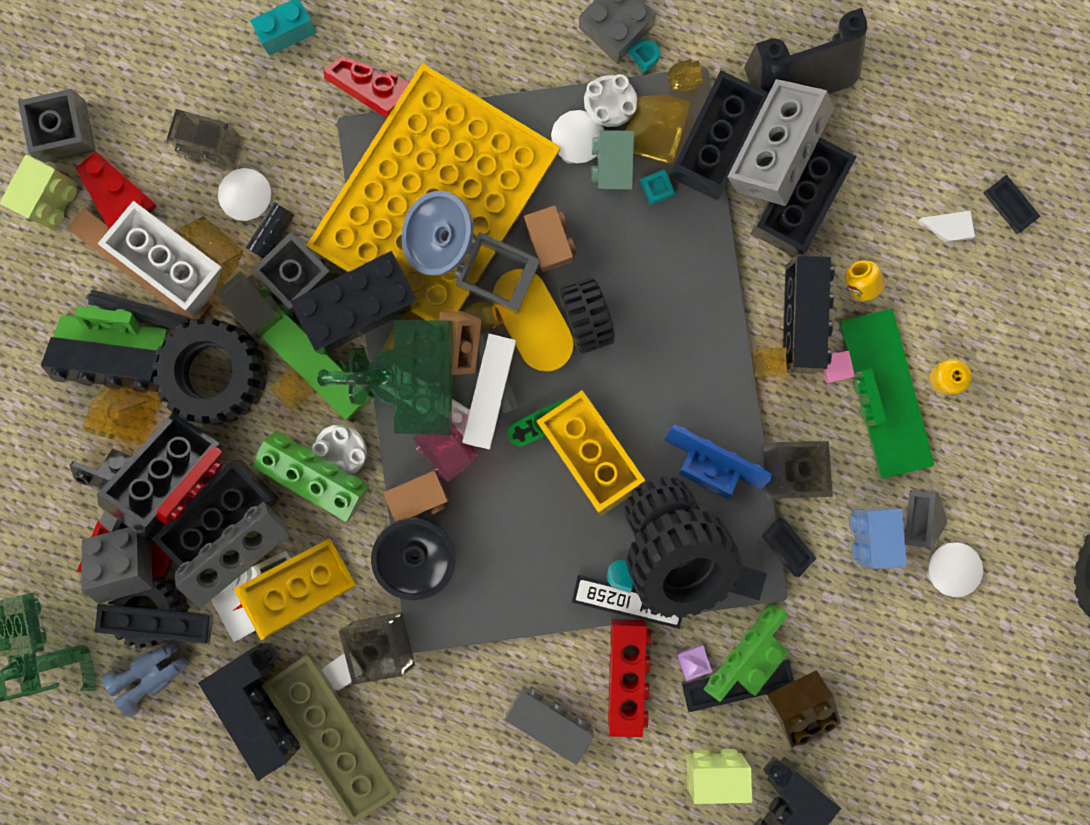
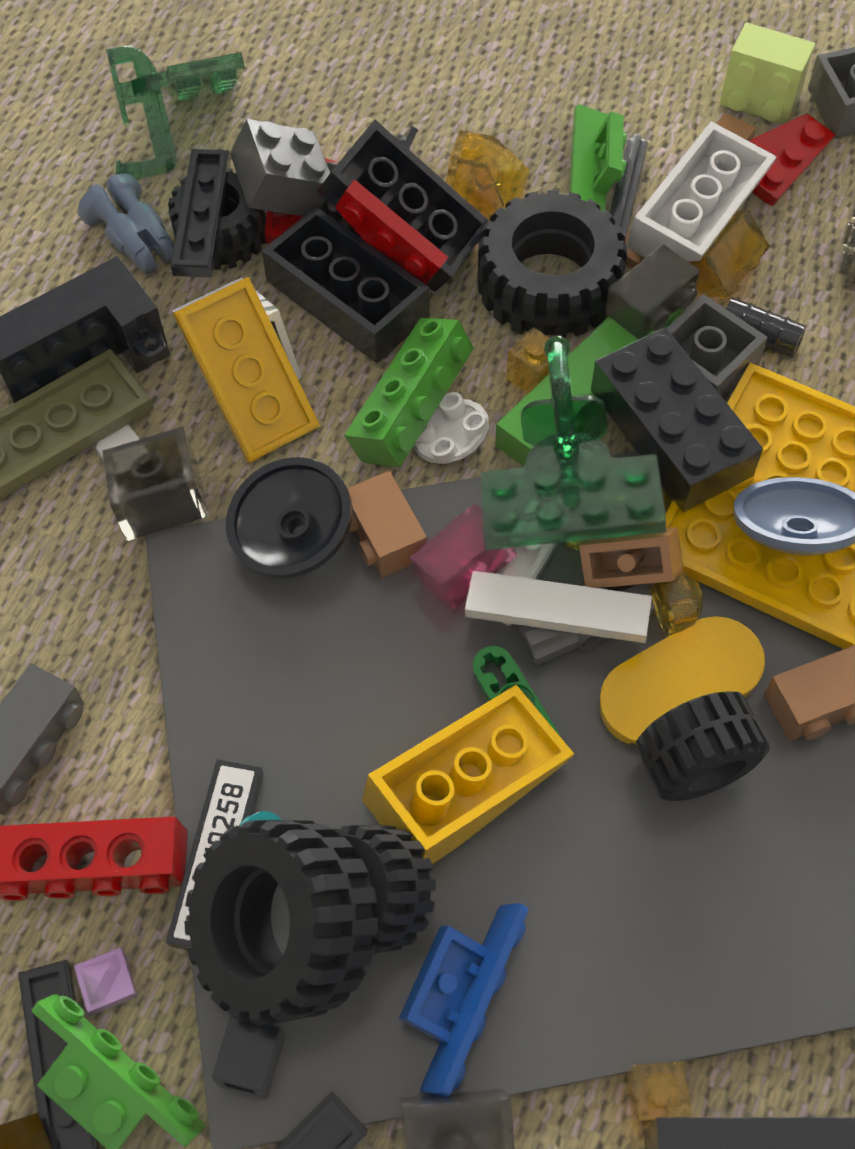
camera: 85 degrees right, 25 degrees down
(100, 364) = (548, 142): black brick -> none
(203, 587) = (250, 255): dark grey brick -> none
(244, 194) = (811, 298): white dish -> none
(530, 262) = (745, 650): dark grey window -> none

